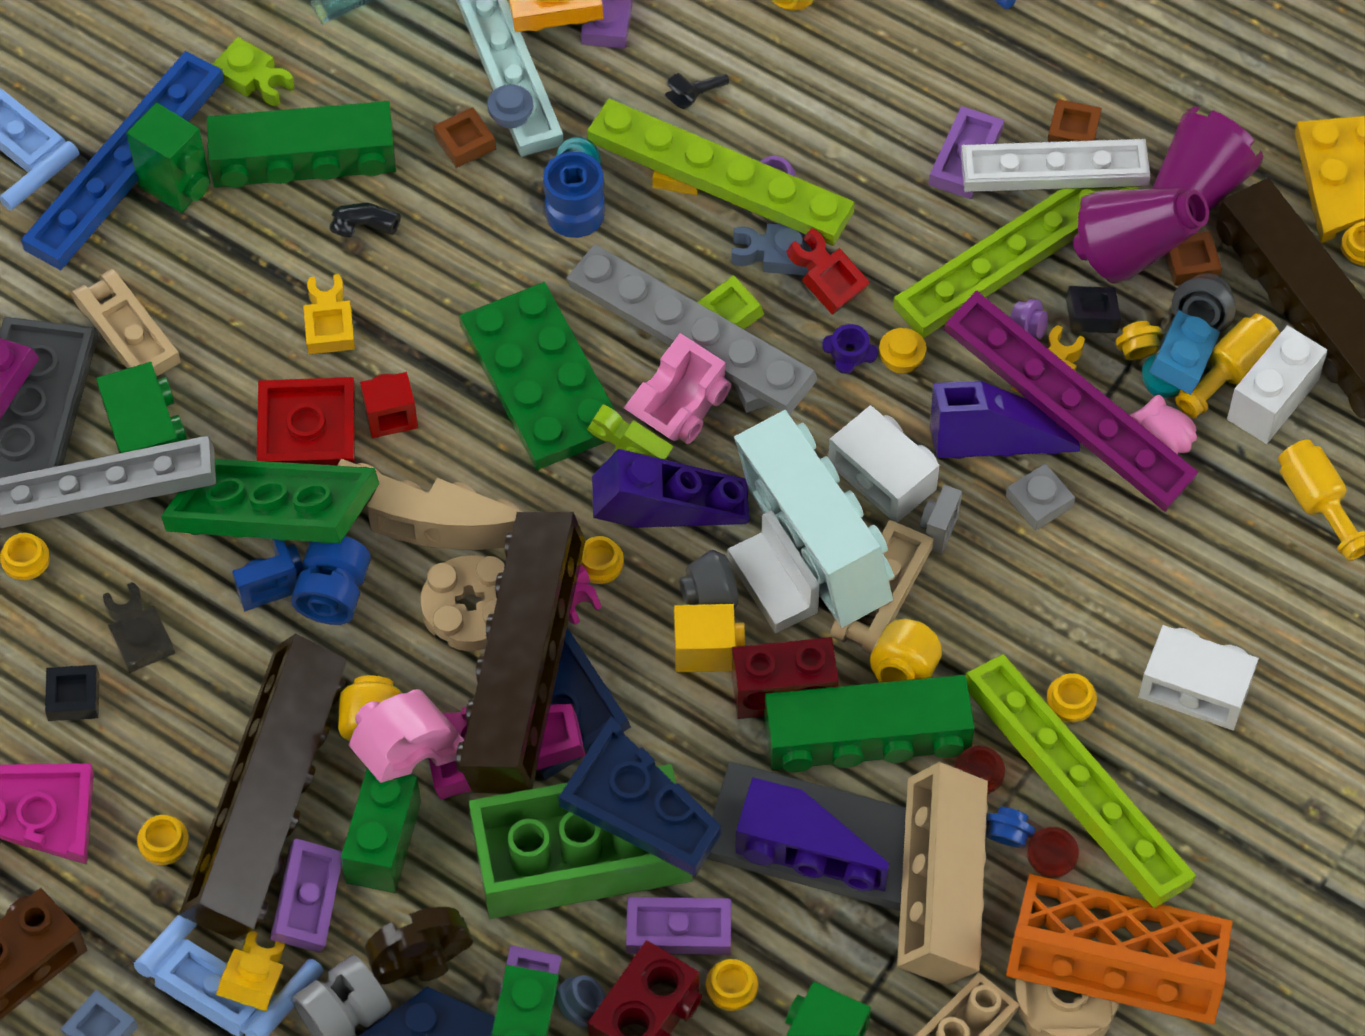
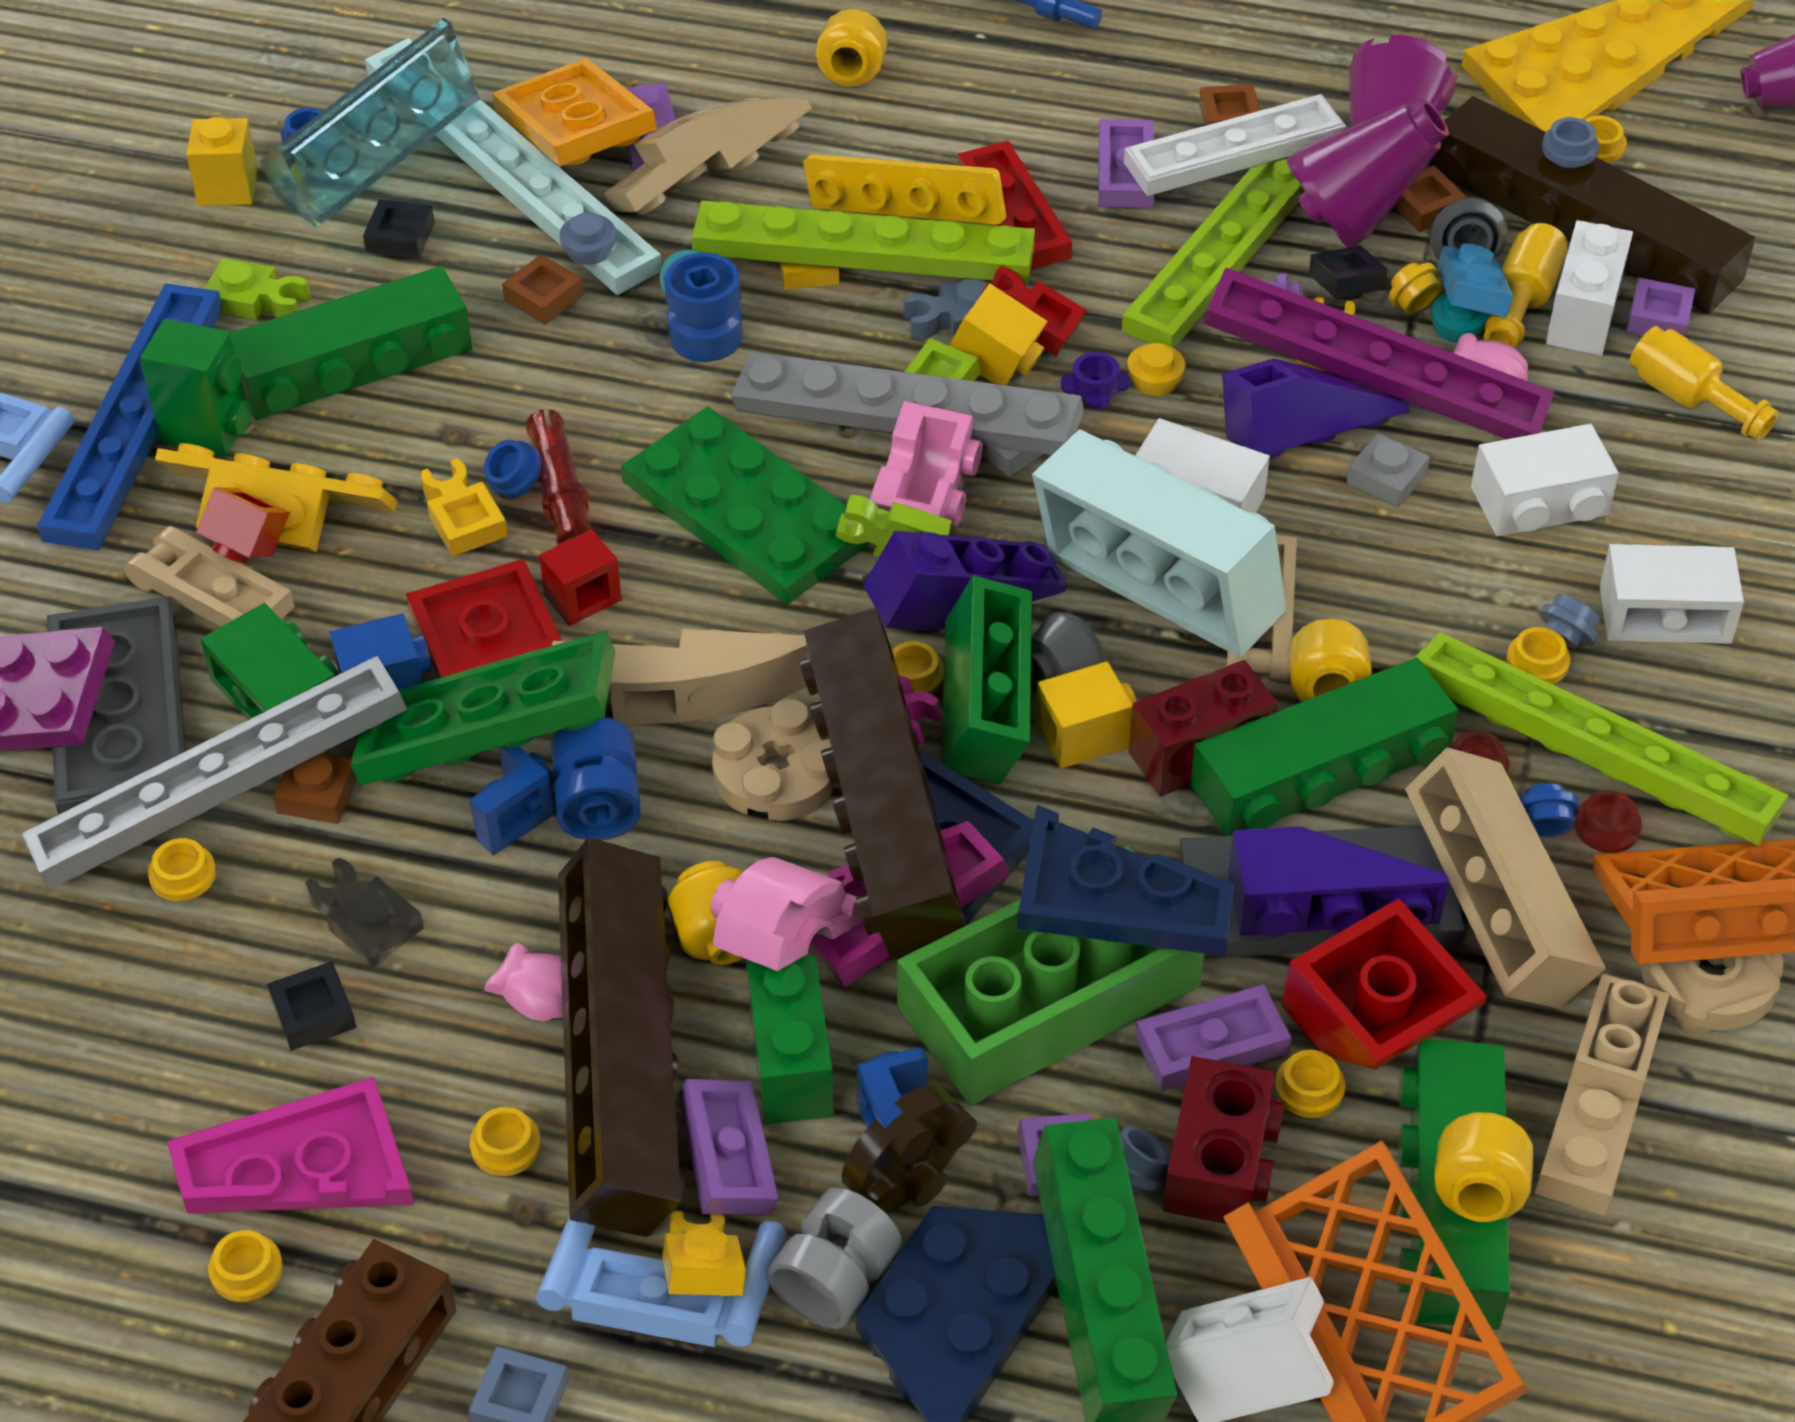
camera: 20 degrees left, 10 degrees down
(139, 520) = (316, 788): none -> dark orange plate
(160, 287) = (241, 524): none -> plate
(191, 269) = (300, 491): none -> yellow bracket
(225, 424) = (388, 639): none -> blue brick
(225, 723) = (529, 983): none -> bright pink animal
(363, 214) = (457, 396): black arm -> none
(378, 48) = (398, 229): none -> black plate
(378, 293) = (512, 468): none -> blue plate
(406, 331) = (563, 496): none -> clear red pin
(435, 884) = (886, 1081): none -> blue bracket
(641, 589) = (987, 680): none -> green brick
(655, 33) = (711, 139): none -> tan slope
(685, 93) = (778, 185): black hand -> none
(776, 132) = (905, 189): none -> yellow bracket
(776, 575) = (1139, 623): white panel -> none
(787, 290) = (1000, 336): none -> yellow brick
(804, 933) = (1377, 989): none -> red slope
(860, 164) = (1023, 202): none -> red plate
(941, 517) = (1293, 512): light grey plate -> none
(1107, 677) = (1571, 620): none -> sand blue plate
(1151, 547) = (1544, 480): none -> white brick
(1318, 252) = (1570, 143): none -> sand blue plate
(1328, 420) = (1660, 306): none -> medium lavender plate

